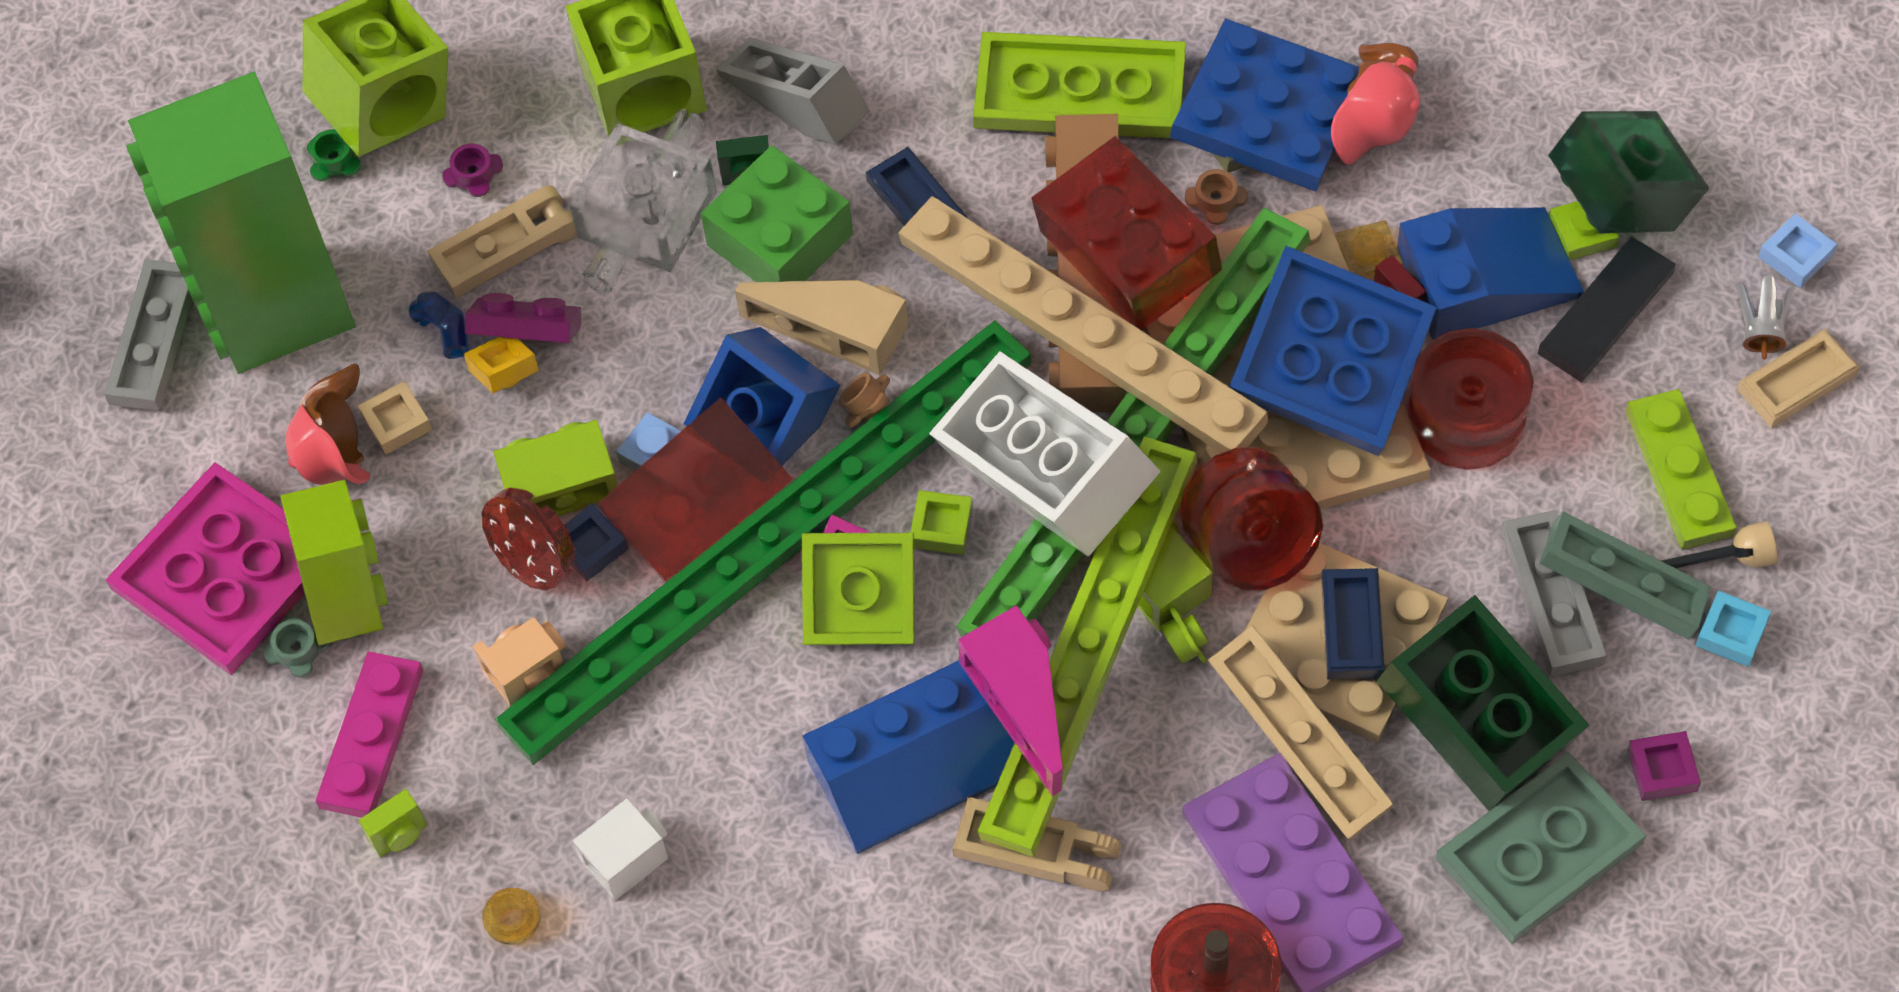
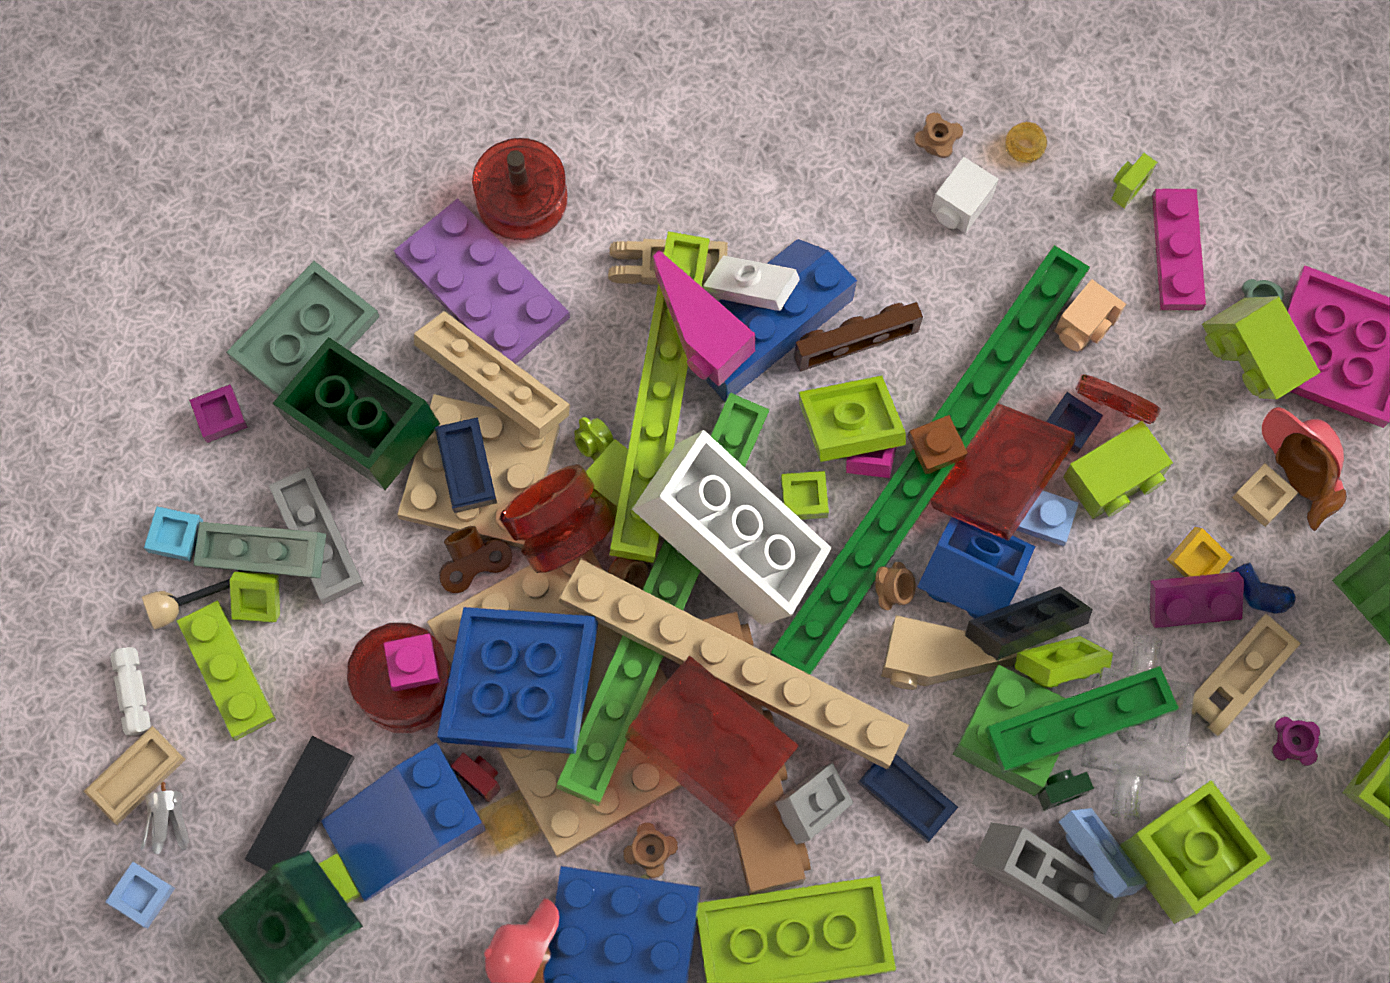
camera: 160 degrees right, 10 degrees up
(625, 965) = (937, 146): none -> medium nougat plate
(701, 270) = (1063, 661): none -> lime plate
(709, 179) = (1081, 719): none -> green plate
(727, 308) = (1028, 623): none -> black plate
(728, 89) = (1110, 864): none -> light blue plate
(764, 533) = (937, 444): none -> dark orange plate
(812, 695) = (857, 335): none -> reddish brown plate
(939, 757) = (751, 282): none -> white plate
(1009, 199) = (813, 803): none -> light grey plate
(1367, 535) = (471, 557): none -> reddish brown piece
(1454, 378) = (411, 662): none -> dark pink plate
(1639, 530) = (255, 596): none -> lime plate
(1798, 464) = (130, 691): none -> white axle

